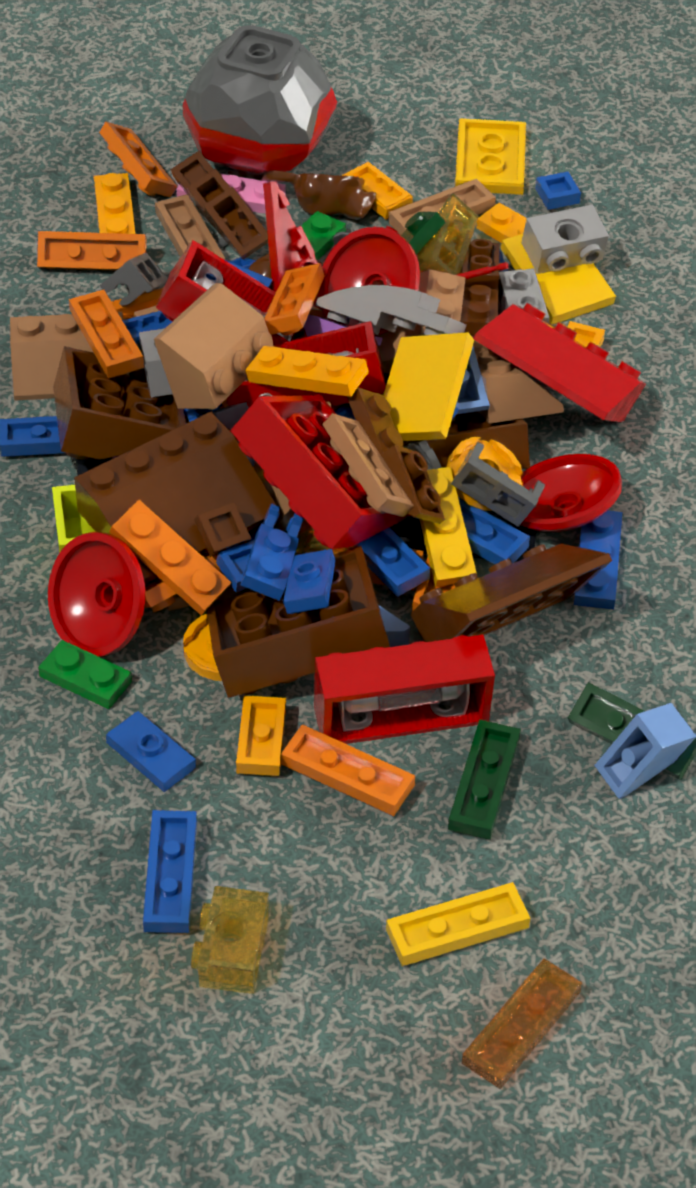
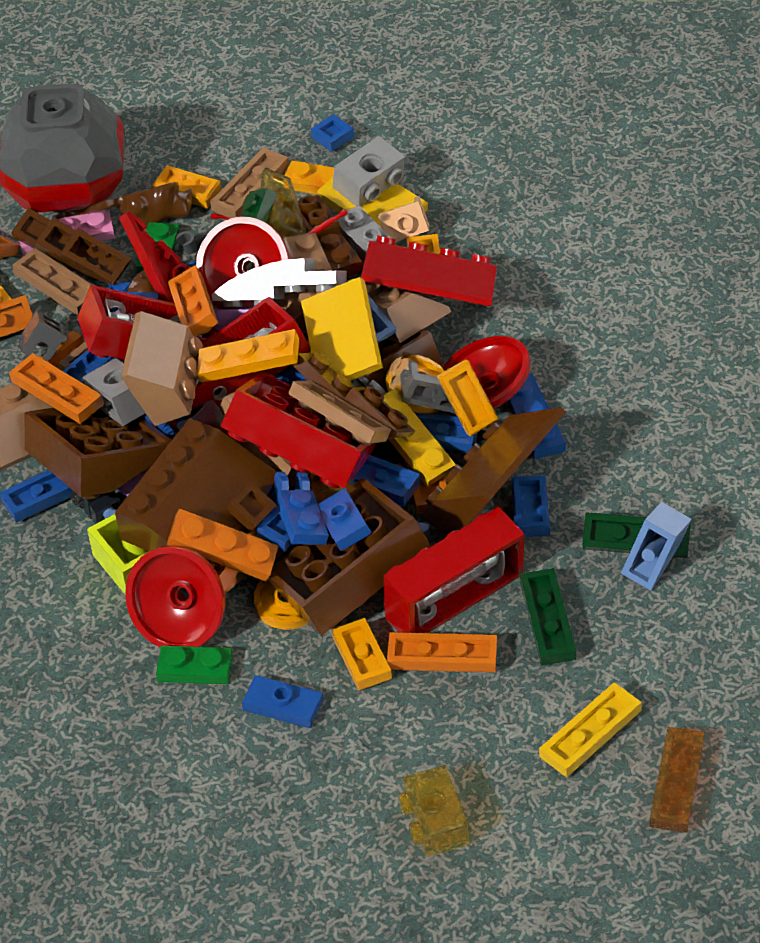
camera: 20 degrees left, 0 degrees up
(170, 872) = (355, 783): blue plate -> none
(492, 154) = (260, 121): yellow tile -> none
(520, 506) = (467, 397): none -> light orange tile
(536, 652) = (531, 505): none -> blue plate
(577, 303) = (405, 220): none -> light nougat bracket

